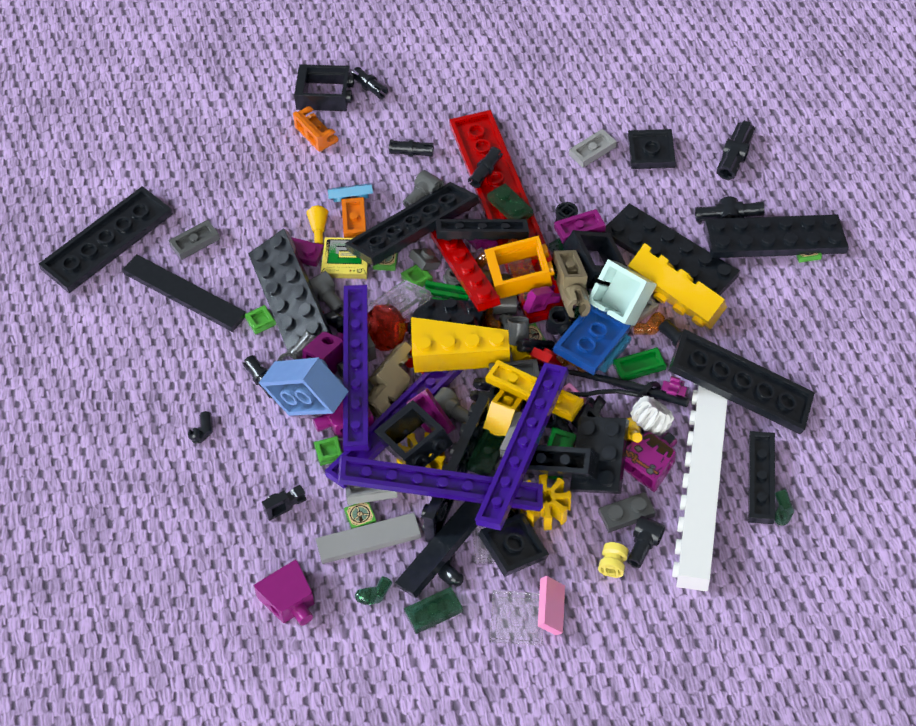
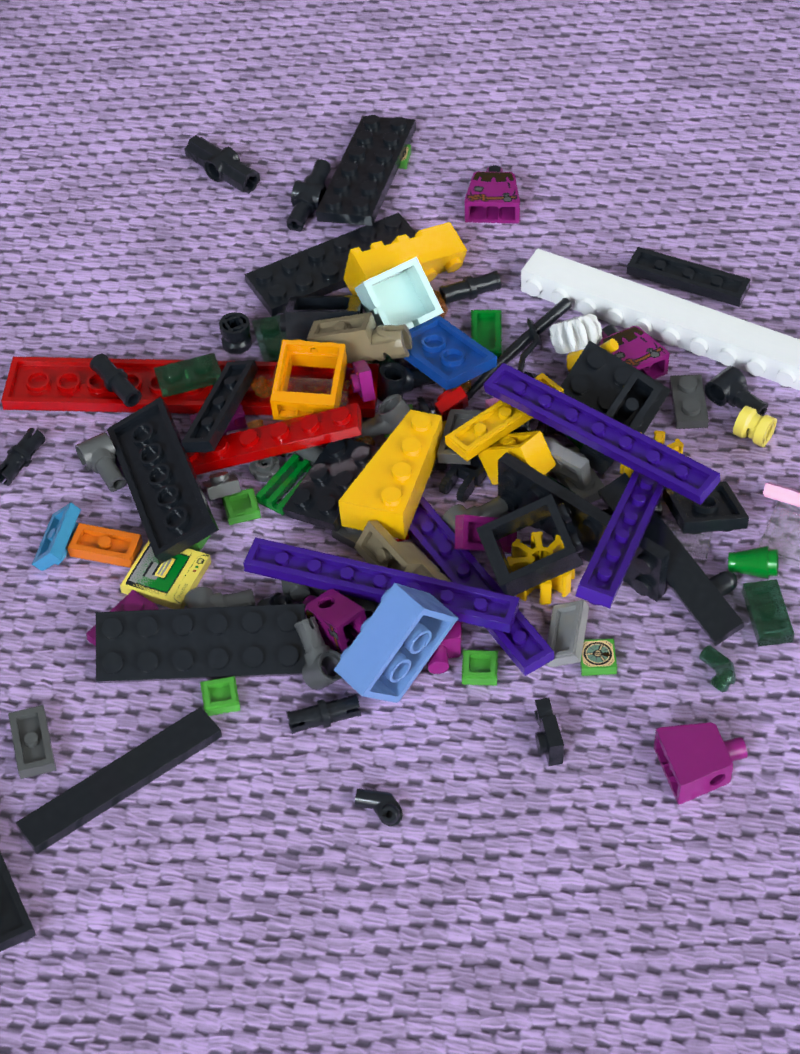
camera: 70 degrees left, 5 degrees down
(317, 218) = (83, 585): yellow cone -> none
(368, 538) = (634, 658): light grey tile -> none
(386, 326) = (324, 534): clear red tile -> none
(404, 297) = (283, 518): clear tile -> none
(478, 594) = (756, 562): none -> green cone
(587, 221) = (265, 318): magenta plate -> none
(592, 148) = (137, 282): light grey plate -> none
(651, 149) = (172, 232): black plate -> none
(675, 387) = (542, 304): magenta plate -> none
(741, 381) = (567, 243): black plate -> none
(785, 509) = (746, 272): clear green arm -> none
(786, 322) = (492, 197): none -> magenta torso

